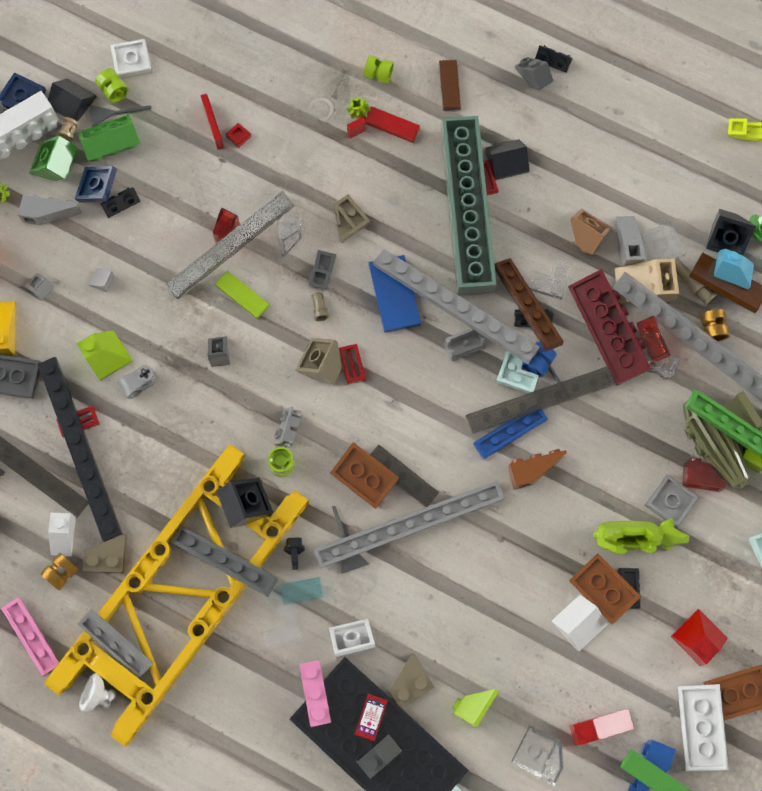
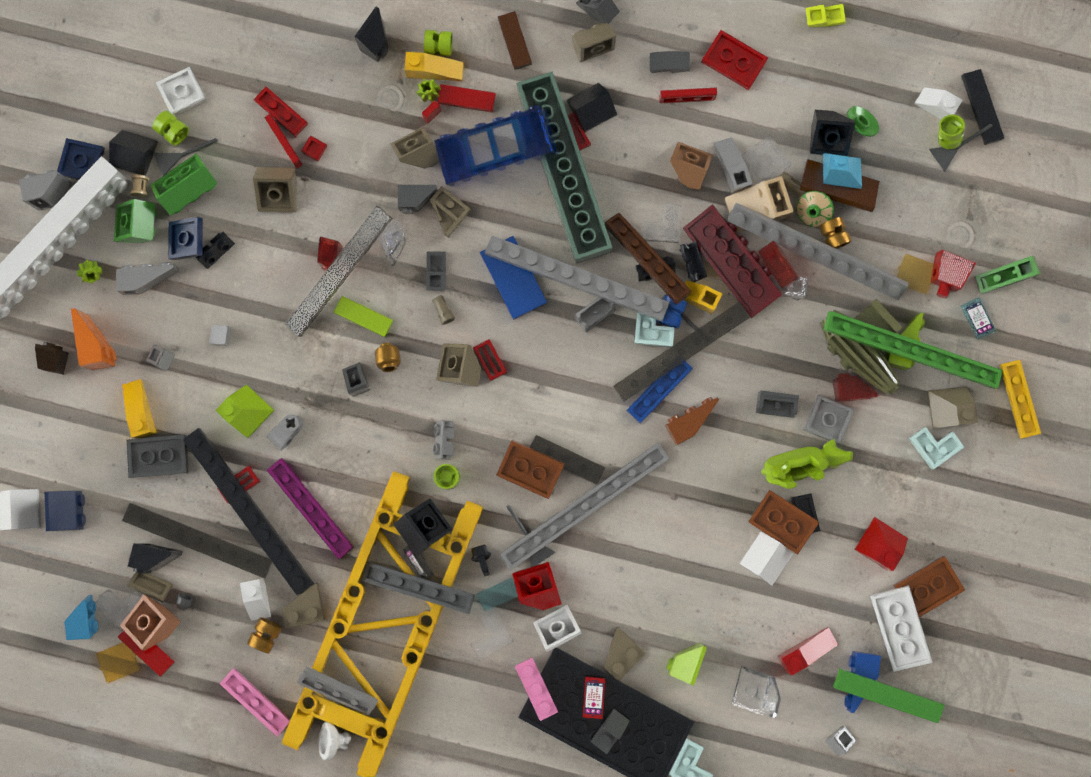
camera: 10 degrees left, 10 degrees up
(140, 462) = (310, 508): none -> magenta tile
(192, 161) = (275, 189): none -> dark tan slope
(217, 96) = (280, 111): none -> red tile
(231, 538) = (419, 564): none -> clear smoke tile
(254, 336) = (387, 357): none -> pearl gold head
(319, 49) = (372, 36): none -> black slope
(320, 198) = (414, 197): none -> dark grey slope
(334, 157) = (416, 149): none -> dark tan slope
(342, 592) = (537, 587): none -> red slope
(362, 86) = (432, 67): none -> yellow slope
(408, 167) = (495, 145): none -> clear blue window
(523, 102) = (594, 41): none -> dark tan slope
(571, 319) = (694, 262): none -> black hinge
(573, 353) = (703, 297): none -> yellow slope
(591, 135) = (669, 61): none -> dark grey slope
(600, 168) = (687, 95): none -> red tile
(623, 472) = (777, 404): none -> dark grey hinge
(652, 149) = (734, 60): none -> red tile
(707, 293) = (817, 201): none -> tan dish

